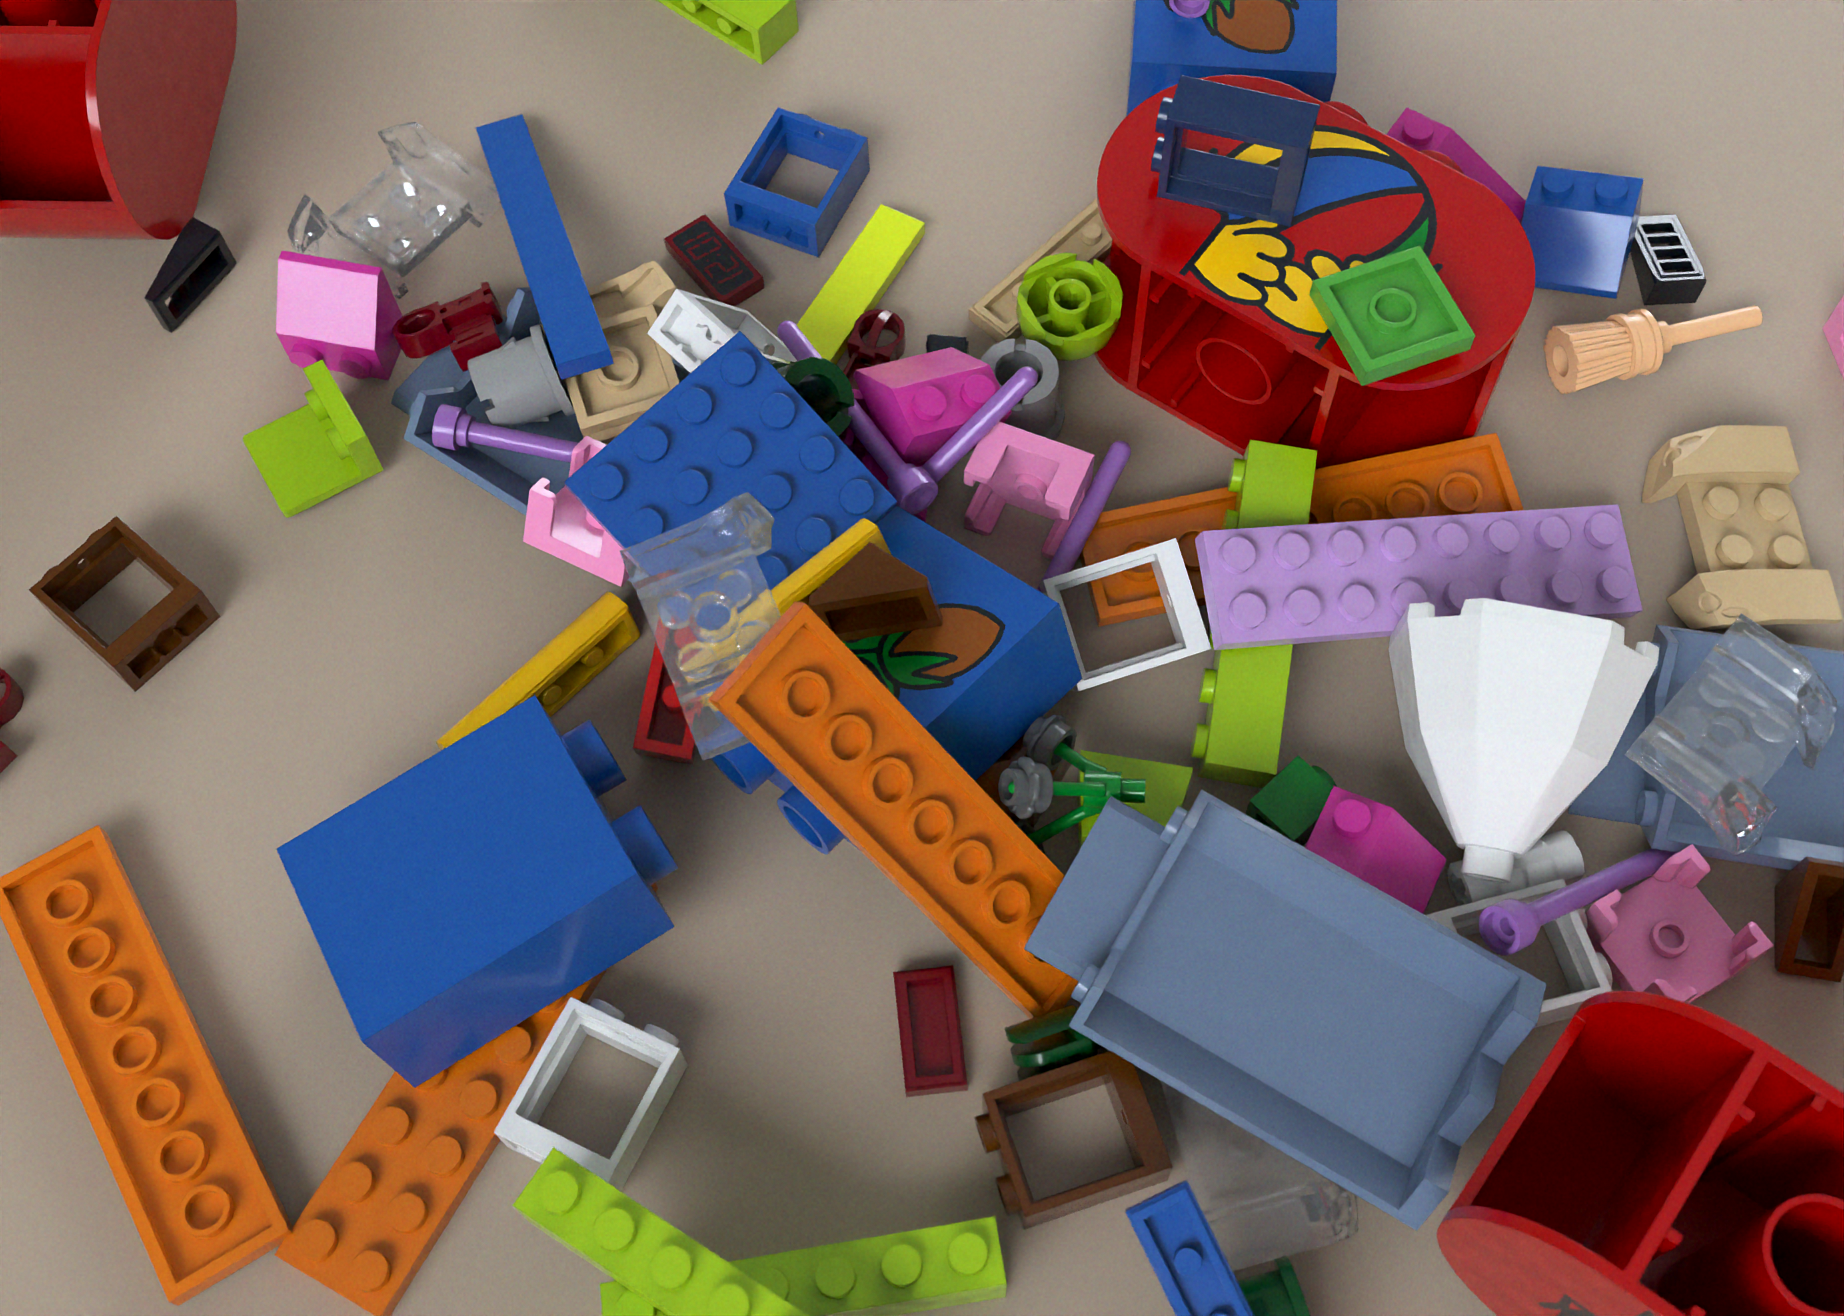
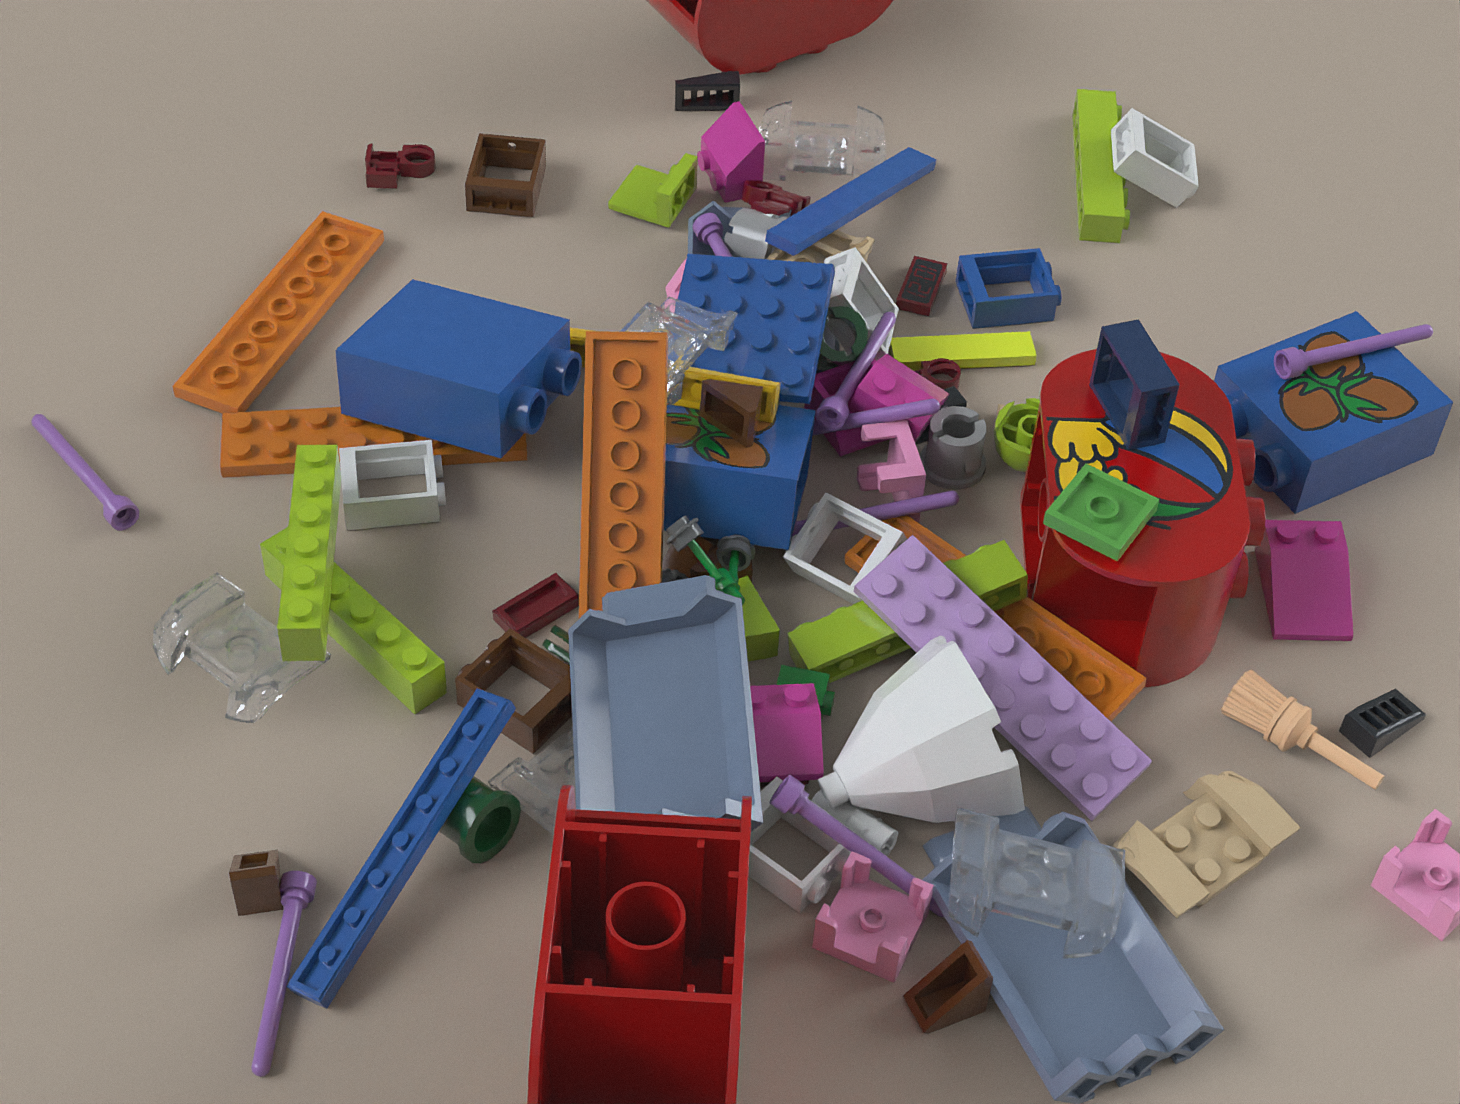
camera: 50 degrees right, 15 degrees down
(1581, 229) = (1346, 657): blue slope -> none

